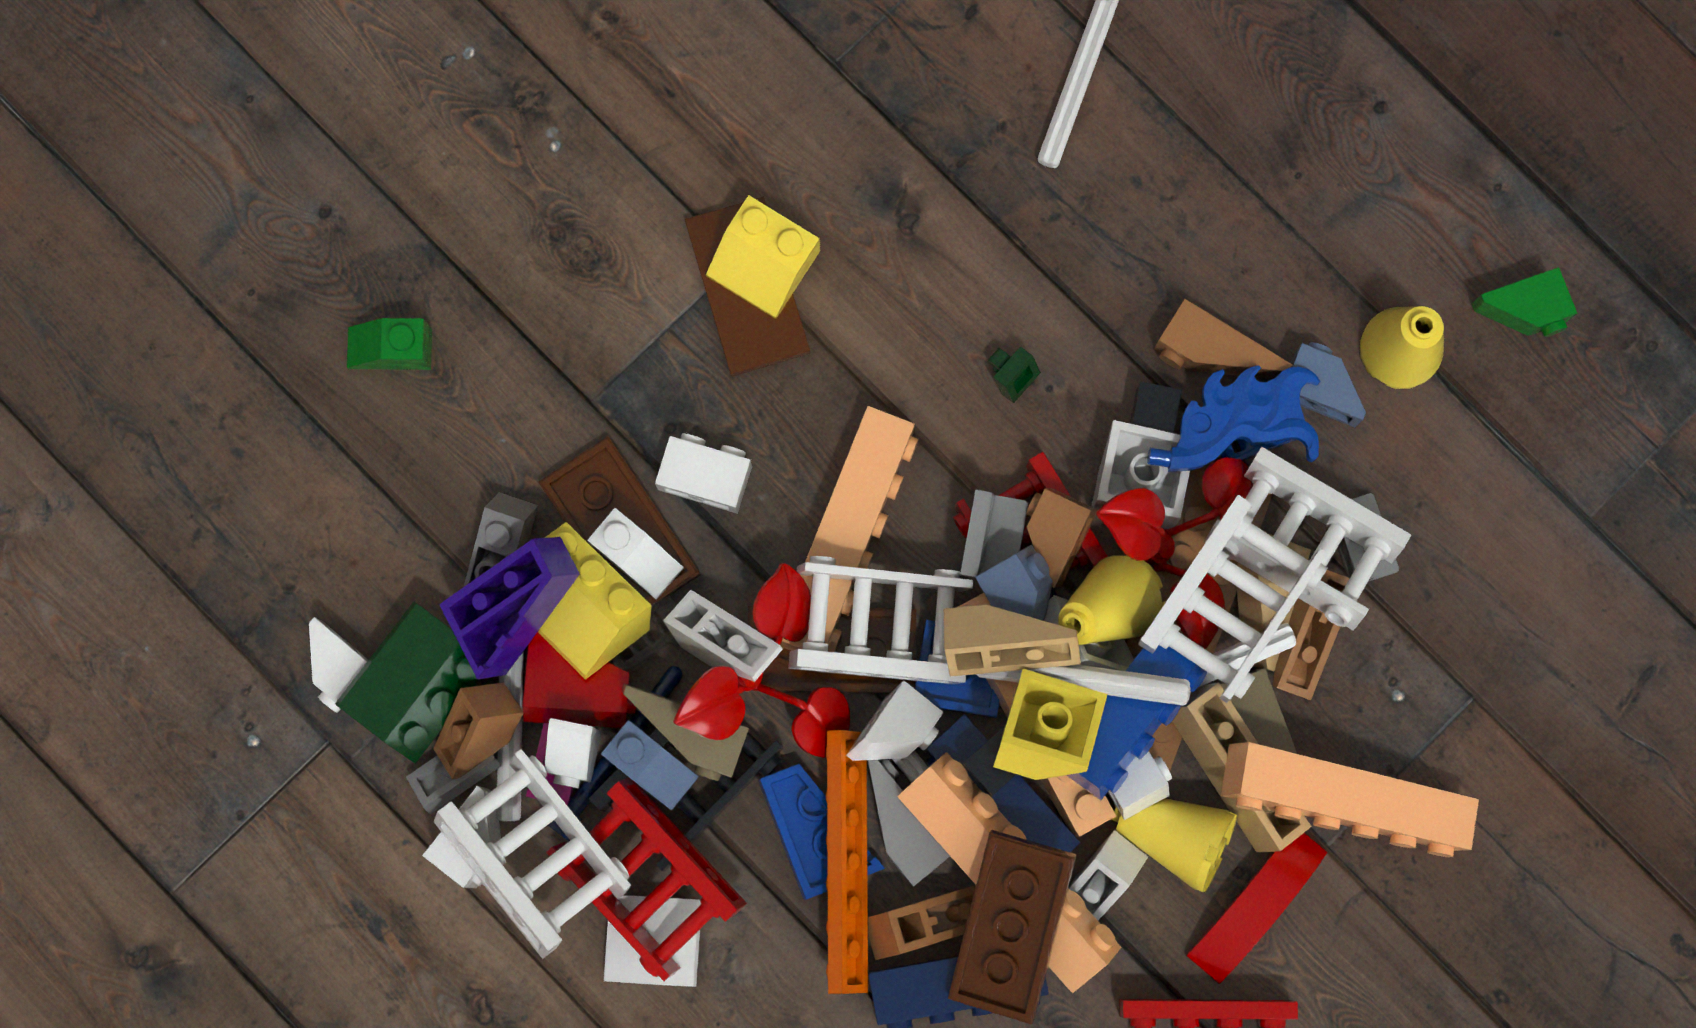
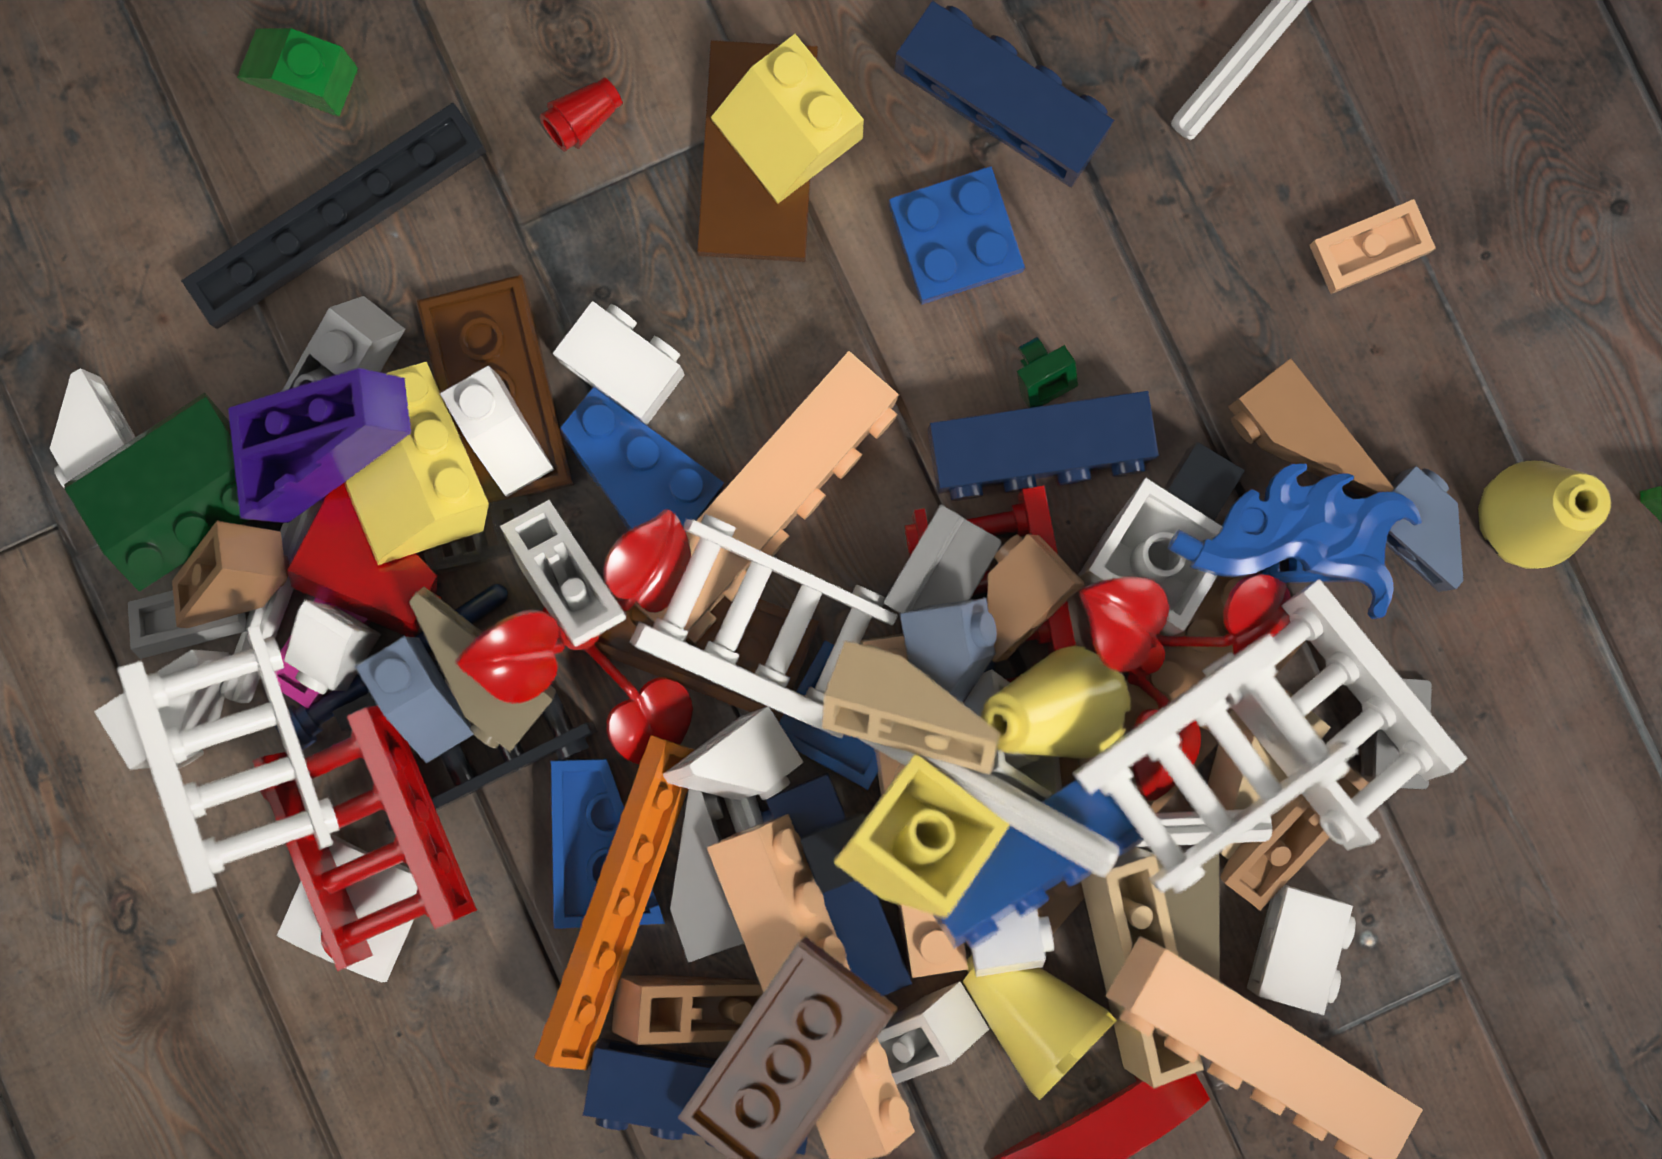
camera: 20 degrees right, 5 degrees up
(456, 442) = (333, 216): none -> black plate
(609, 305) = (580, 113): none -> red cone
(741, 543) = (636, 464): none -> blue wing
(909, 183) = (1002, 92): none -> dark blue brick
(913, 296) = (956, 235): none -> blue plate
(1029, 423) = (1043, 443): none -> dark blue brick
(1214, 198) = (1372, 246): none -> light nougat plate
(1351, 717) = (1301, 949): none -> white brick

